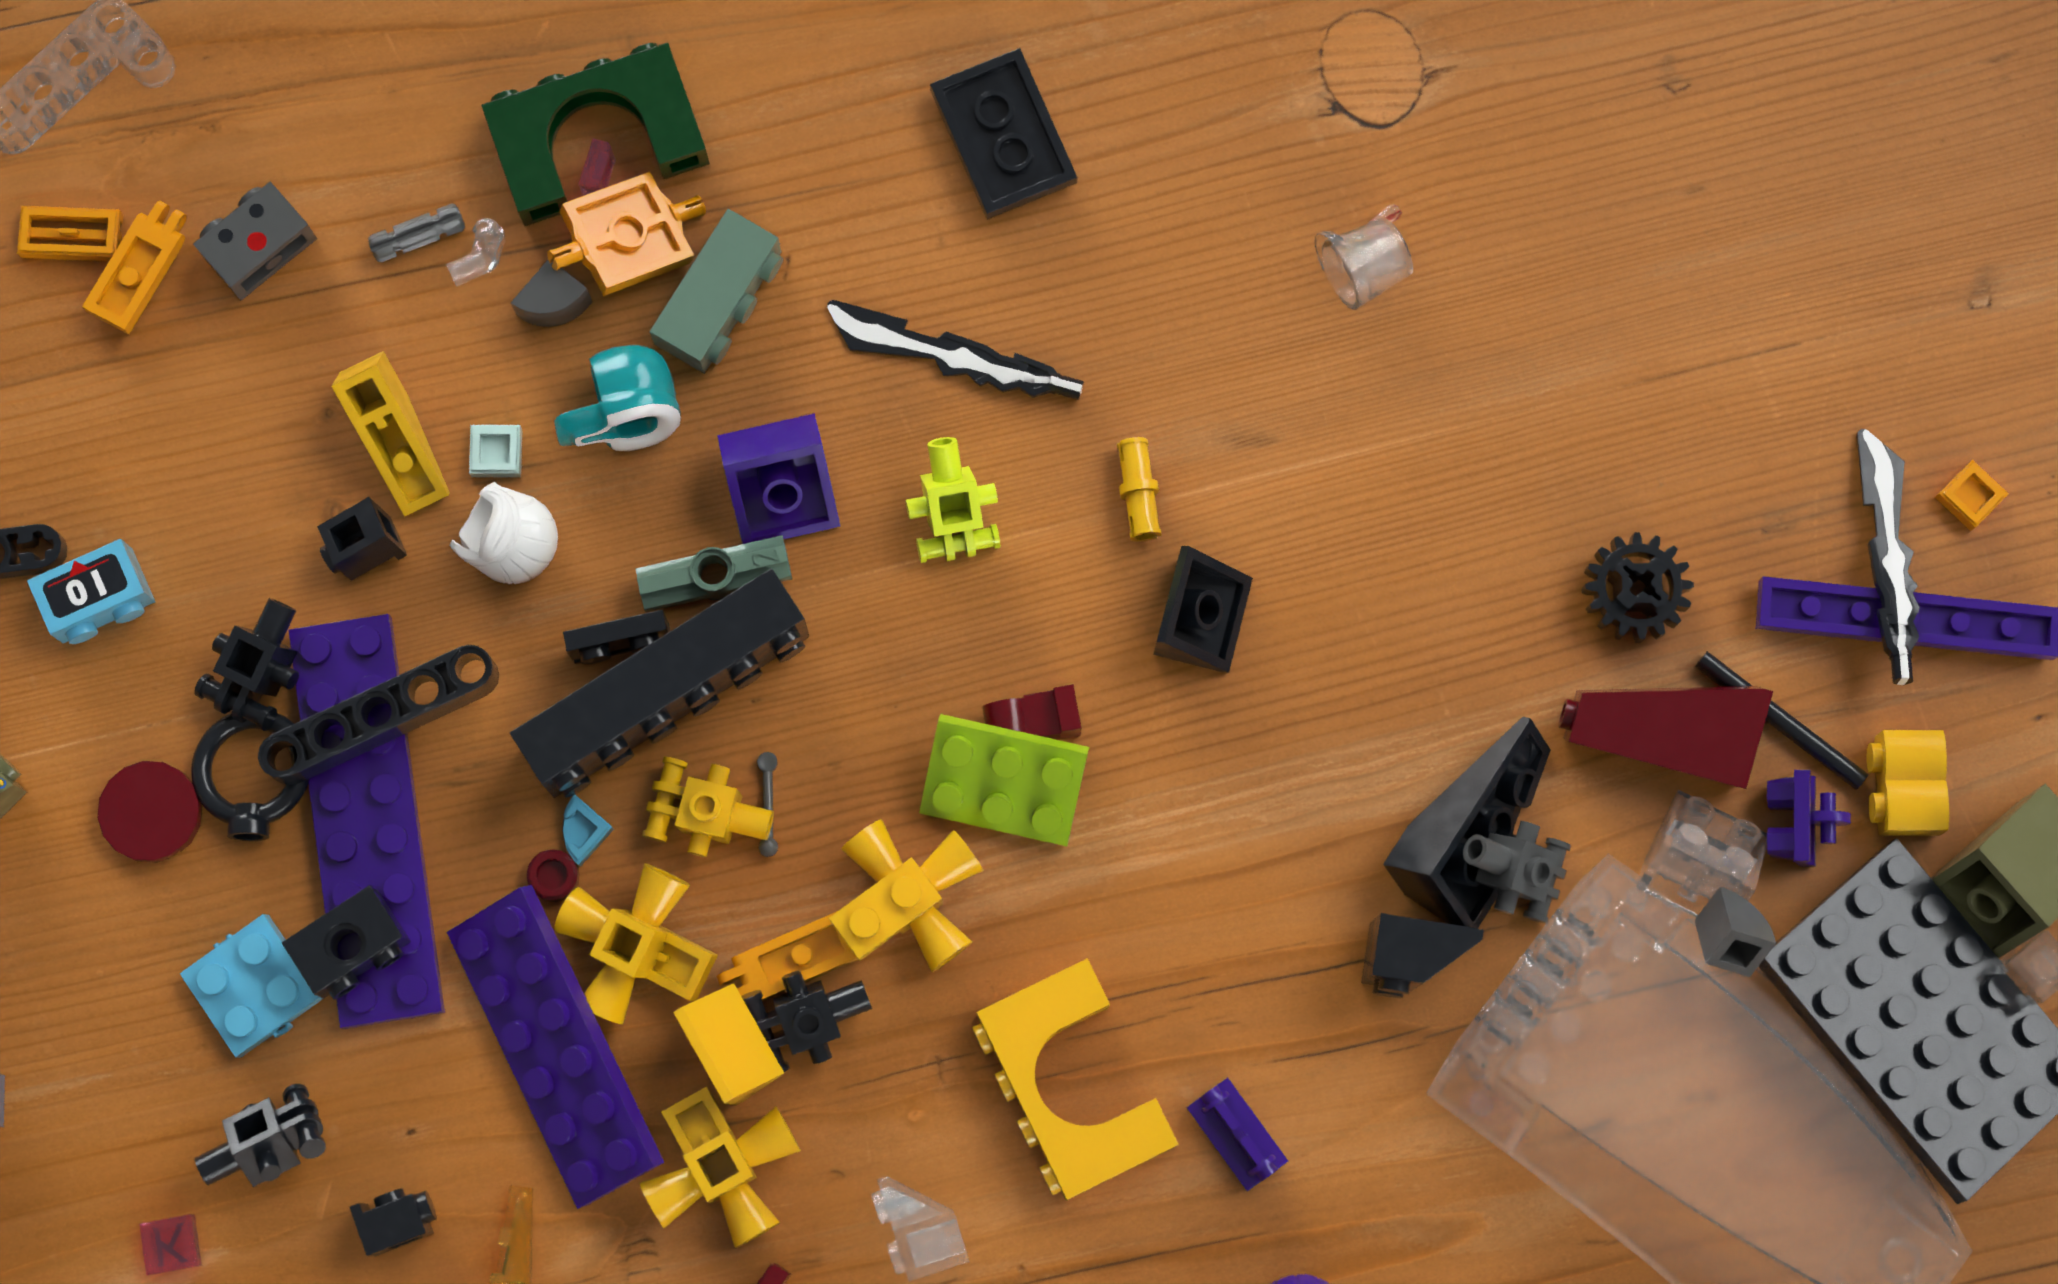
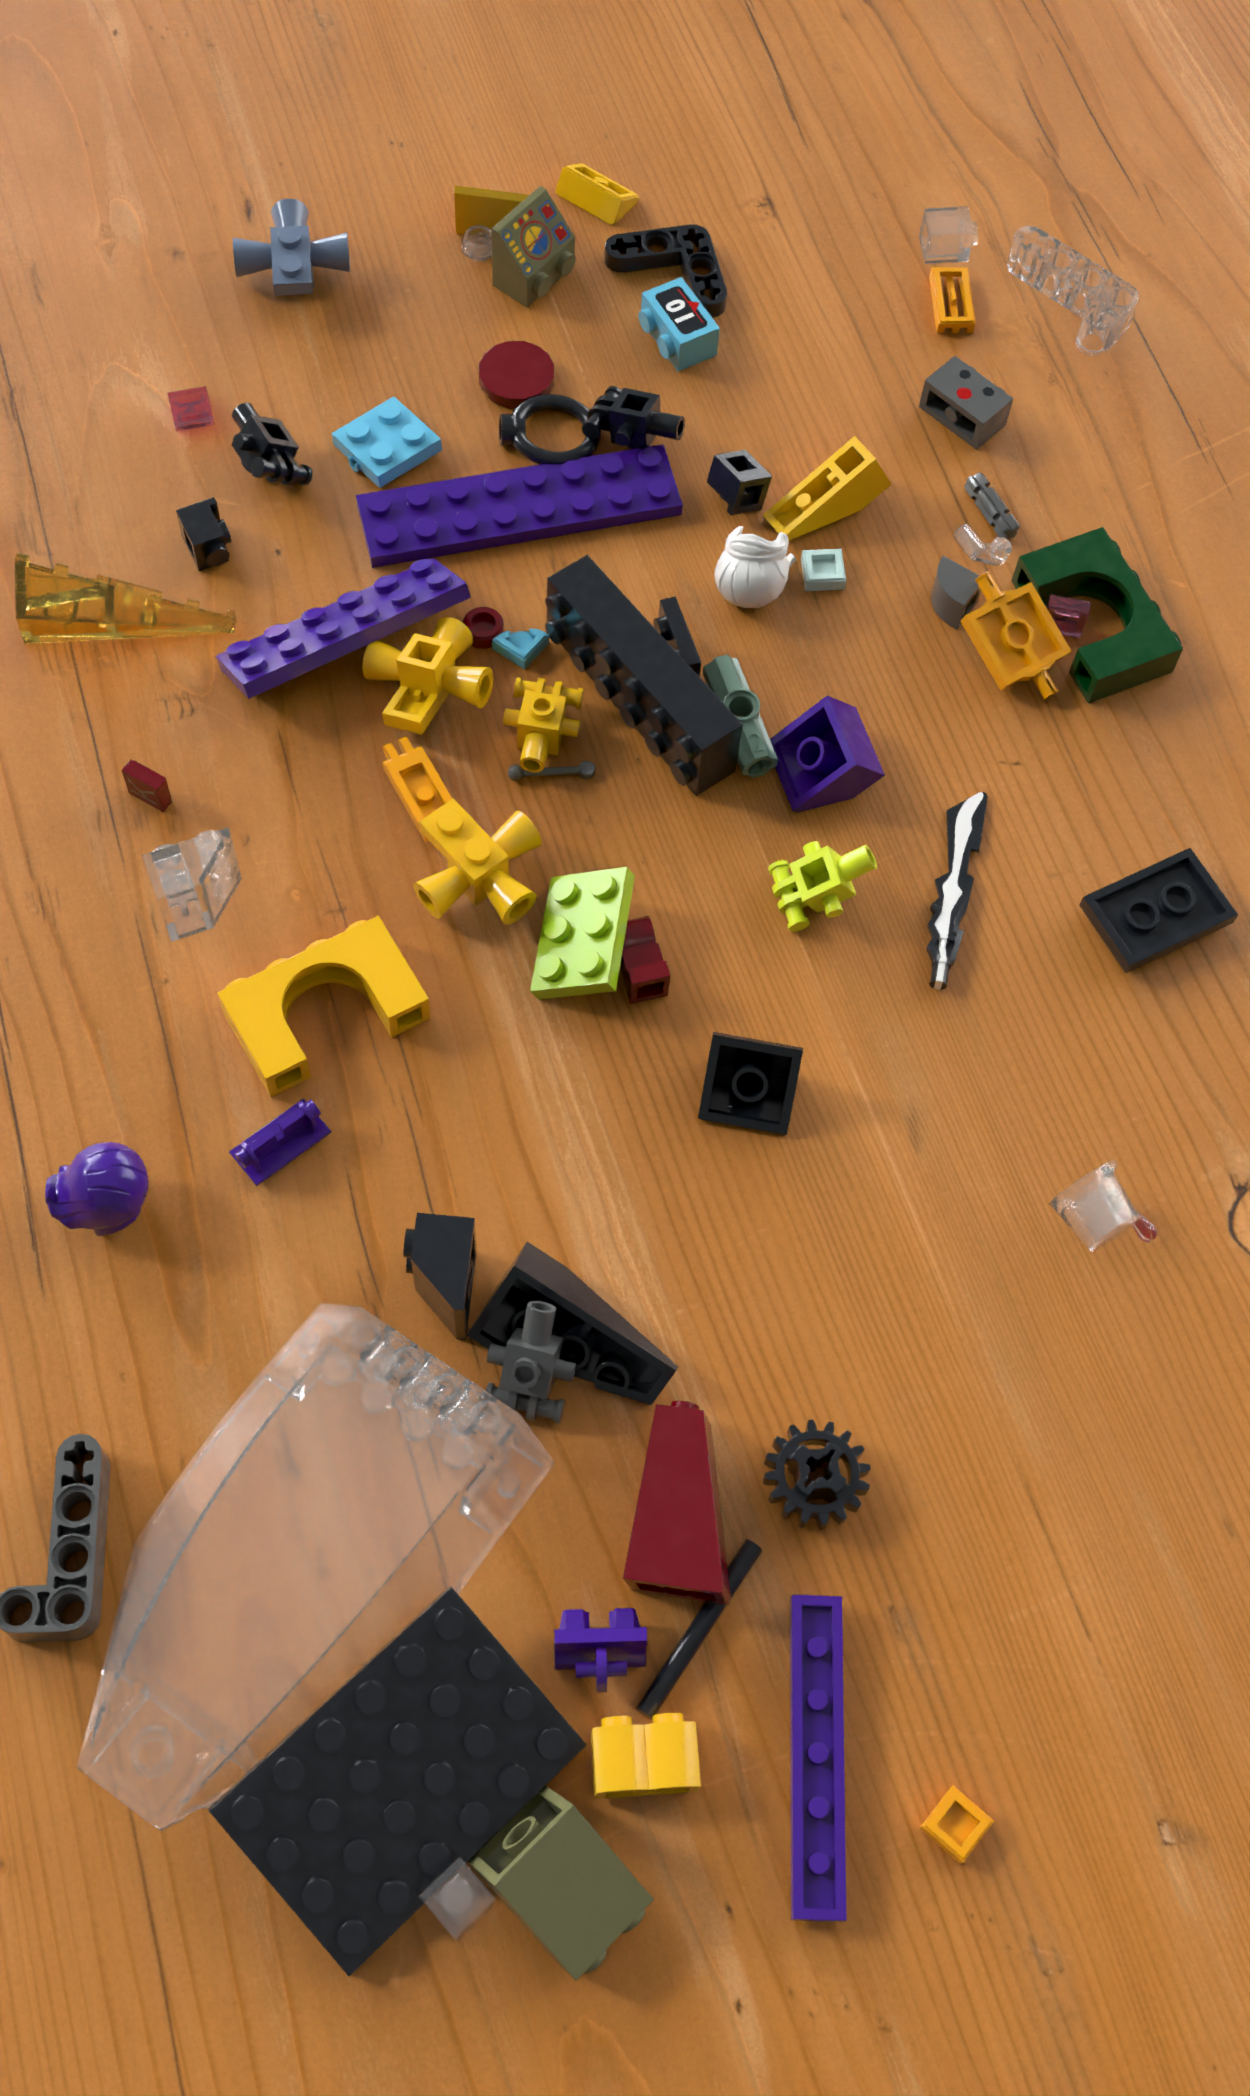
camera: 85 degrees right, 15 degrees down
(137, 268) = (932, 335): light orange hinge -> none
(316, 945) = (417, 480): black brick -> none
(354, 713) = (599, 490): black beam -> none
(633, 405) = (887, 640): teal piece -> none
(717, 292) = (978, 704): sand green brick -> none
(719, 1165) = (248, 744): yellow brick -> none
(729, 1044) = (340, 728): yellow slope -> none
(806, 1015) = (371, 796): black piece -> none
(1139, 489) = (854, 1032): yellow pin -> none
(1699, 852) = (551, 1546): clear slope -> none
(1733, 933) = (474, 1562): dark grey brick -> none
(1889, 557) = (878, 1728): sword -> none

